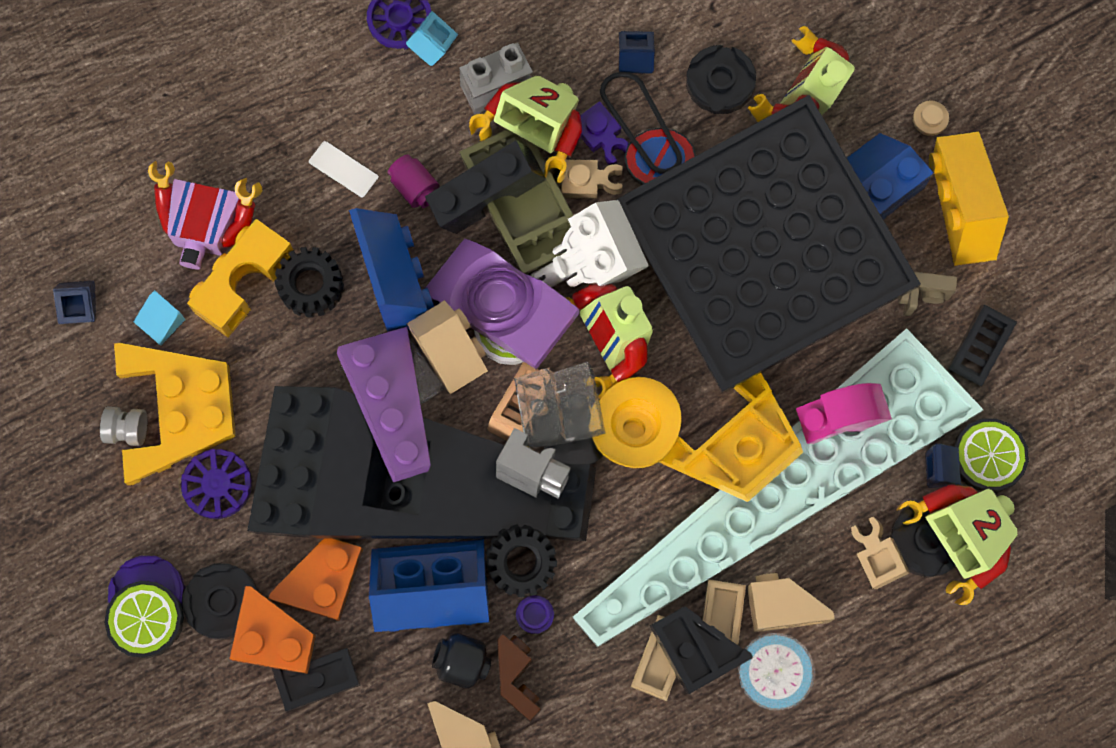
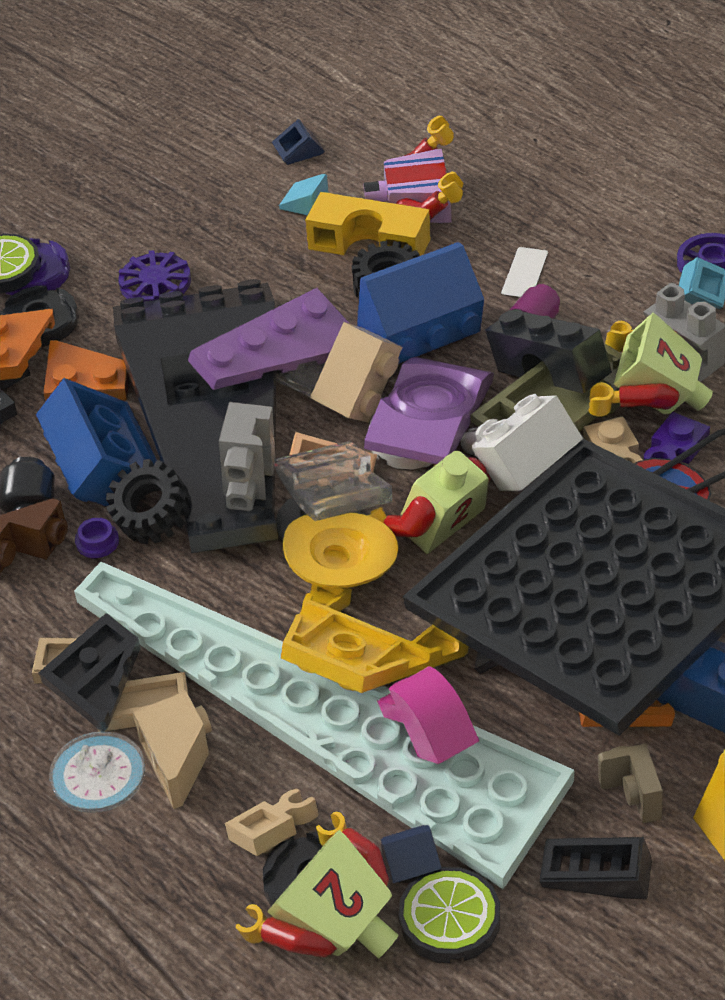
camera: 75 degrees right, 30 degrees down
(120, 426) = (186, 200): light grey wheel -> none
(192, 407) = (223, 243): yellow wing -> none

